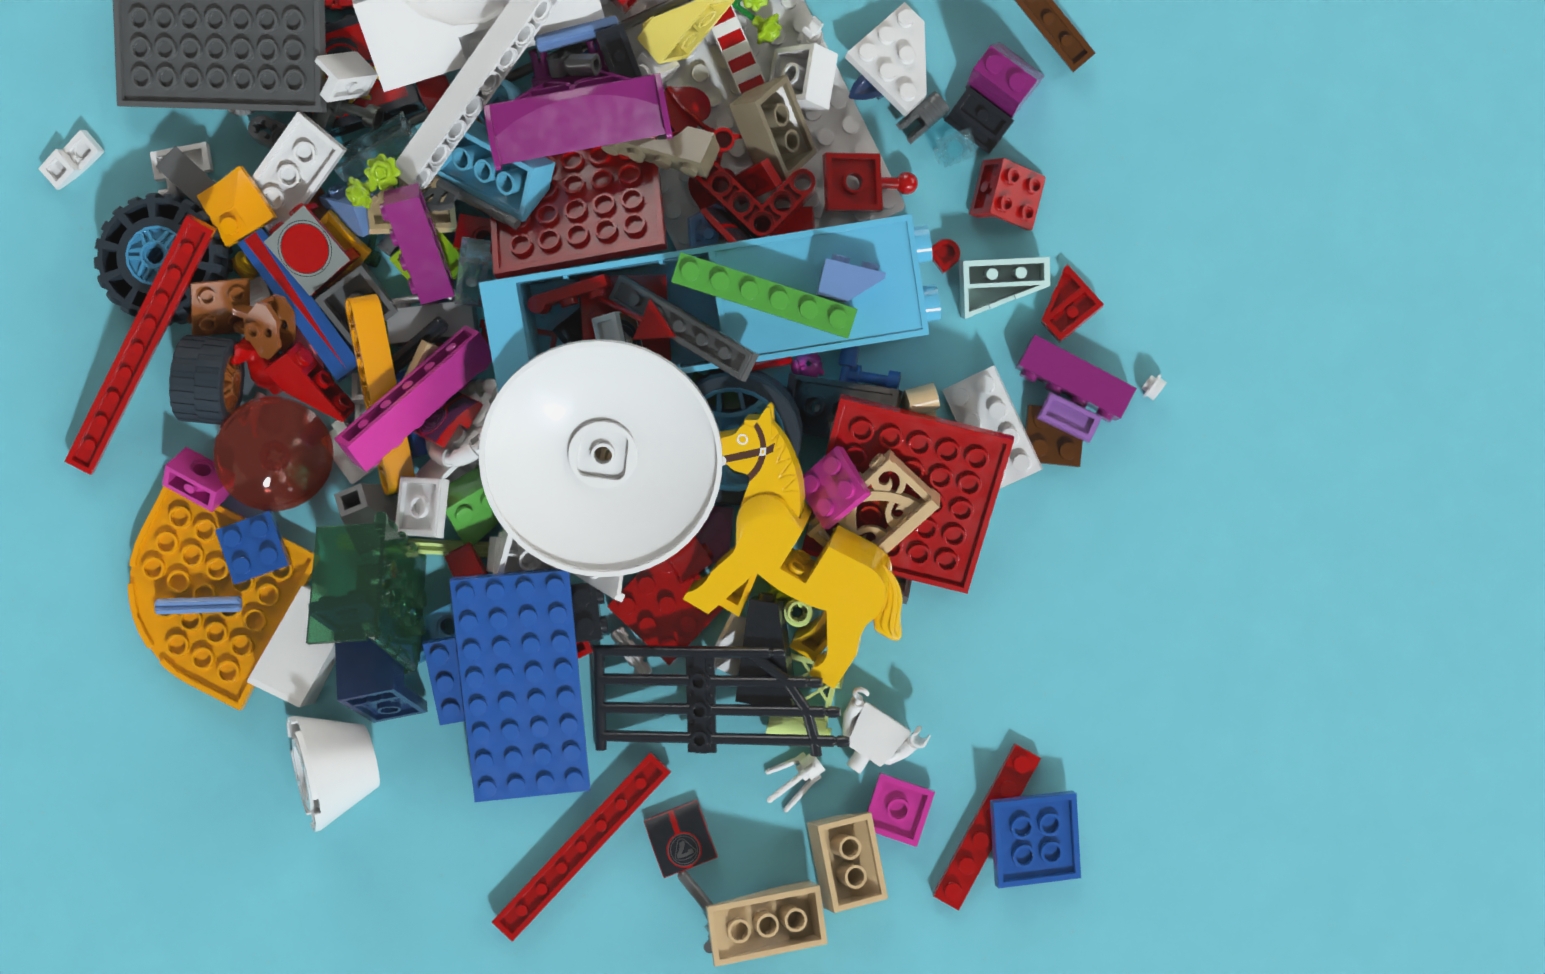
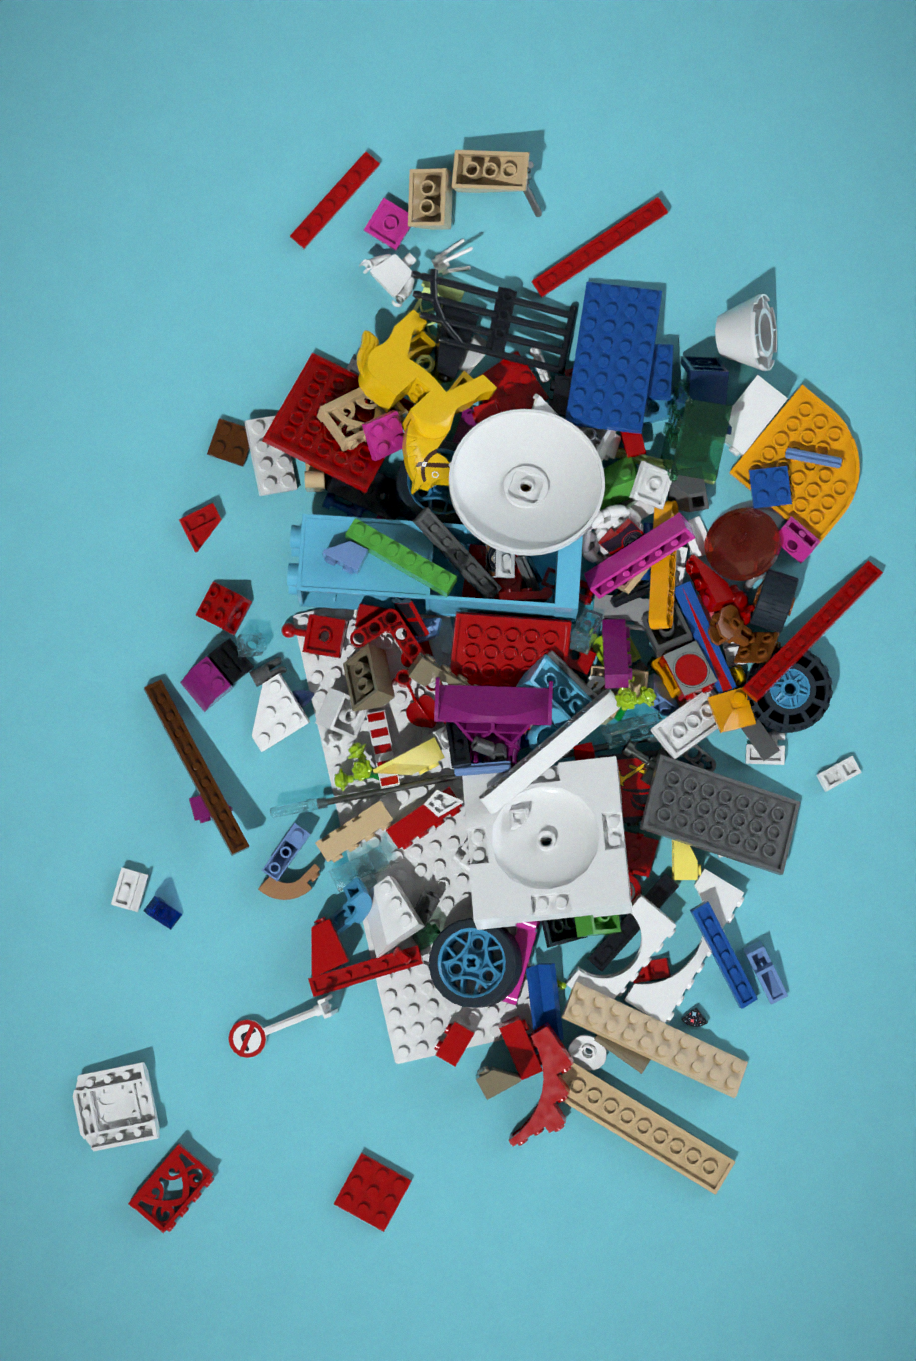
camera: 170 degrees left, 0 degrees up
(348, 76) = (637, 776): white panel -> none
(569, 323) = (527, 573): none -> dark grey axle
(651, 324) = (475, 563): red piece -> none
(680, 838) = (534, 237): black slope -> none
(758, 178) = (387, 649): red plate -> none
(945, 254) = (274, 578): red tile -> none
(998, 281) = (243, 550): light aqua wedge -> none
(1035, 839) = (306, 185): blue plate -> none
(1069, 417) = (219, 450): medium lavender tile -> none
(1075, 378) = (208, 476): magenta brick -> none
(1153, 386) = (158, 459): white plate -> none

